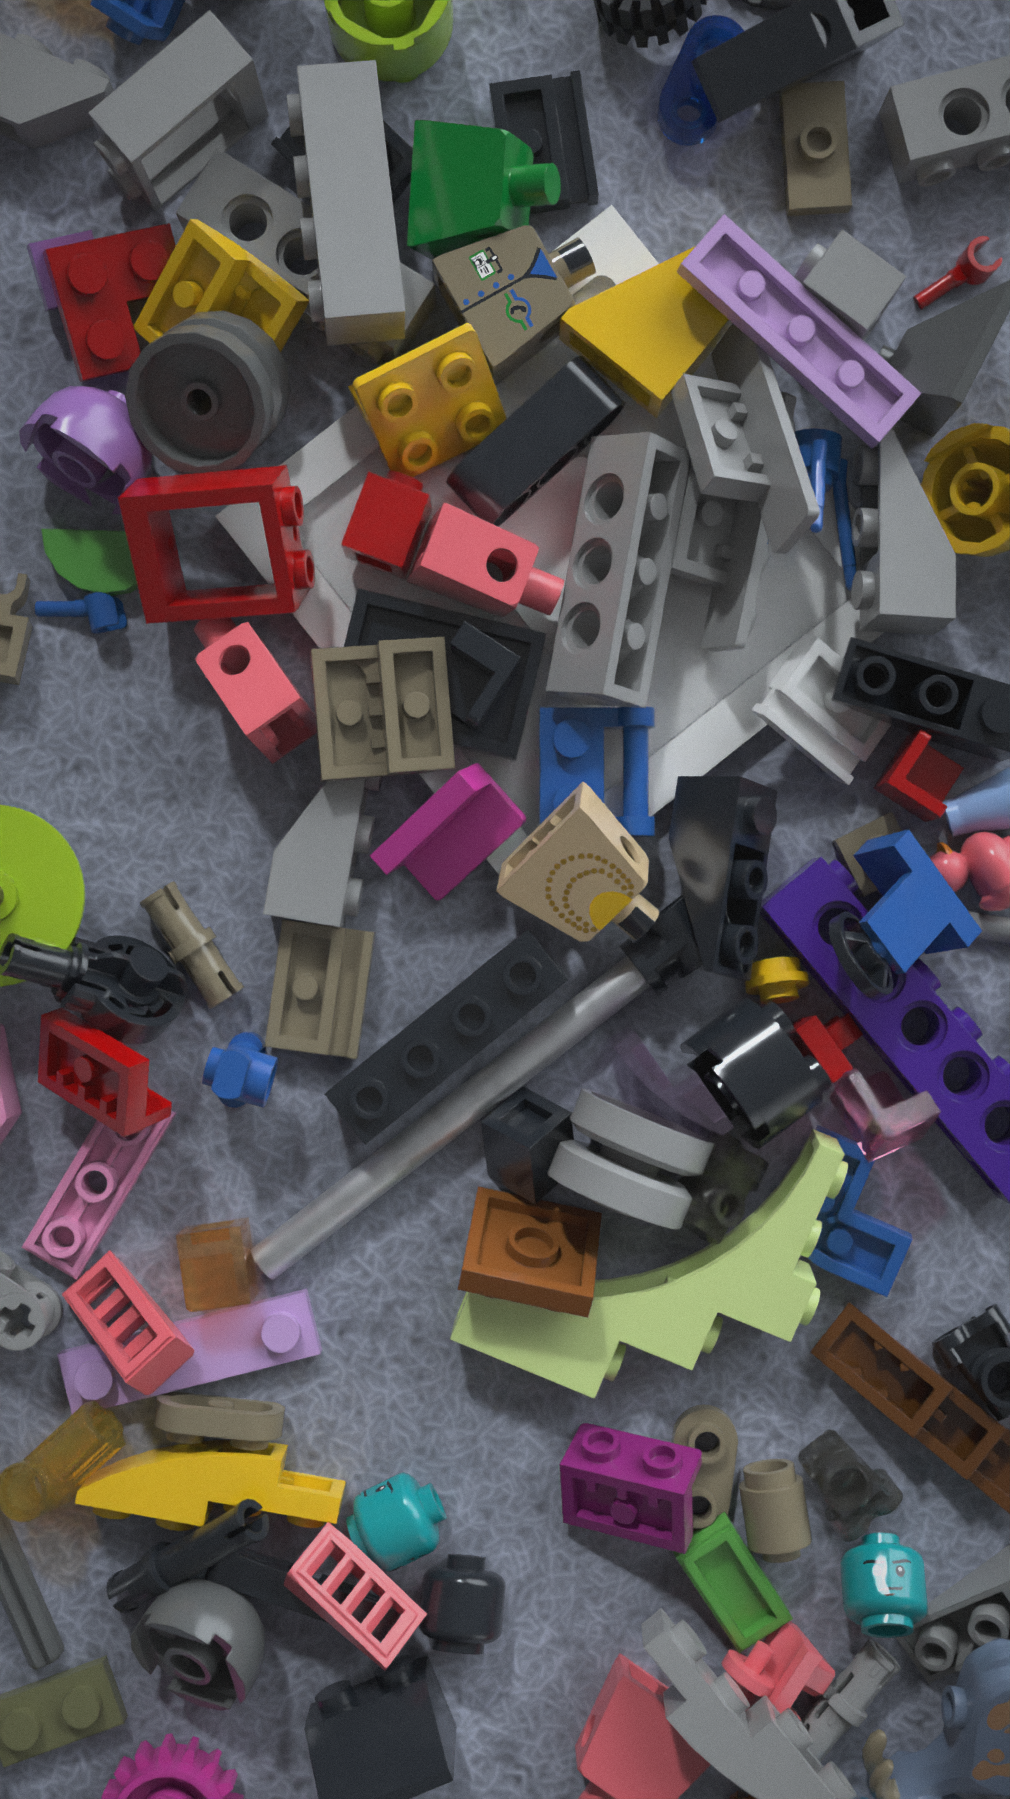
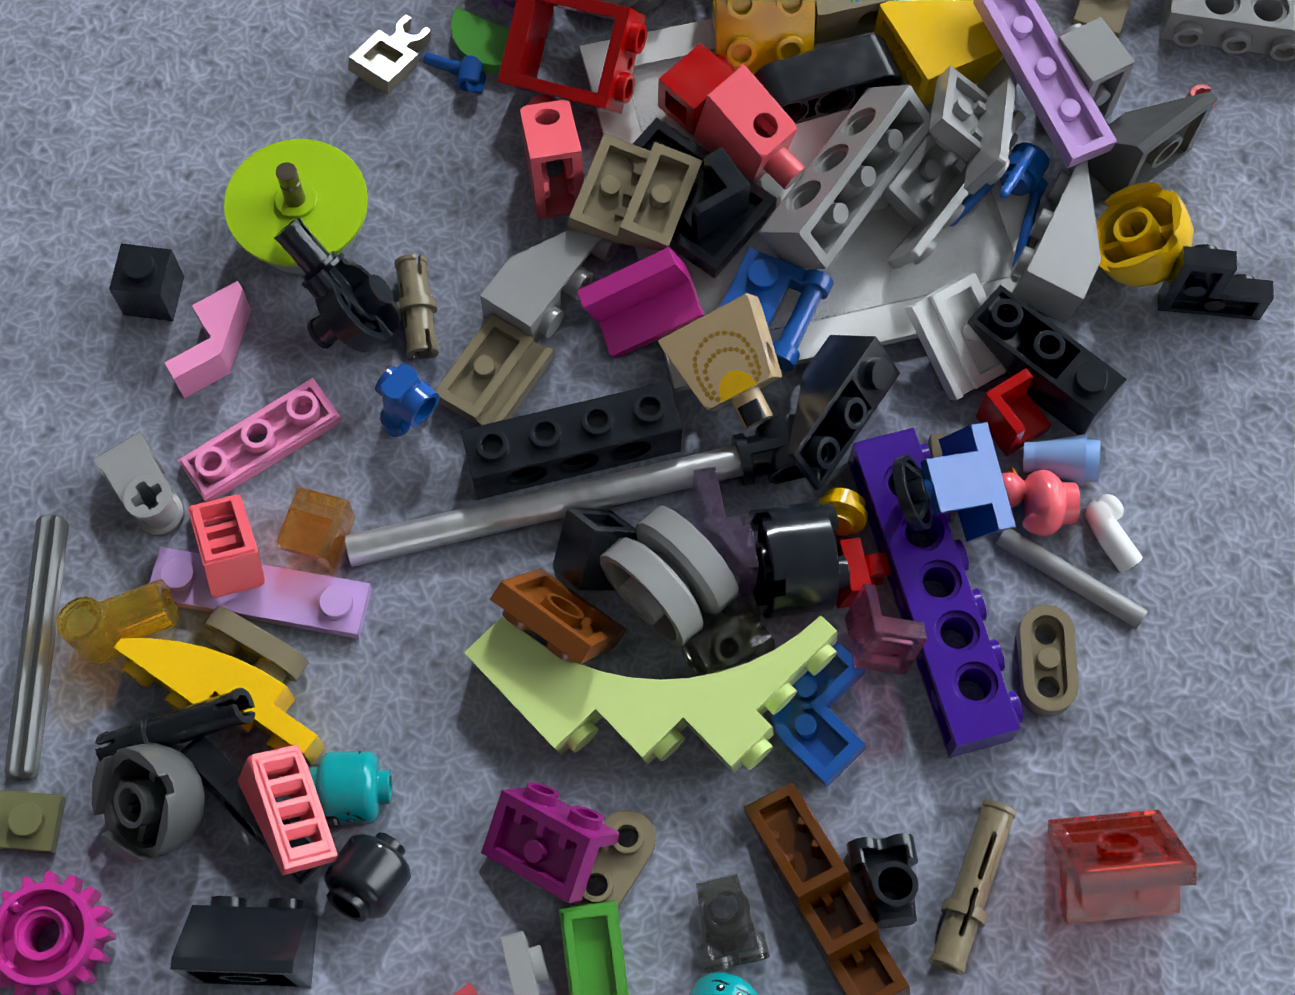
camera: 25 degrees right, 20 degrees down
(97, 1074) = (303, 347): red bracket -> none
(774, 1510) = (657, 916): dark tan brick -> none

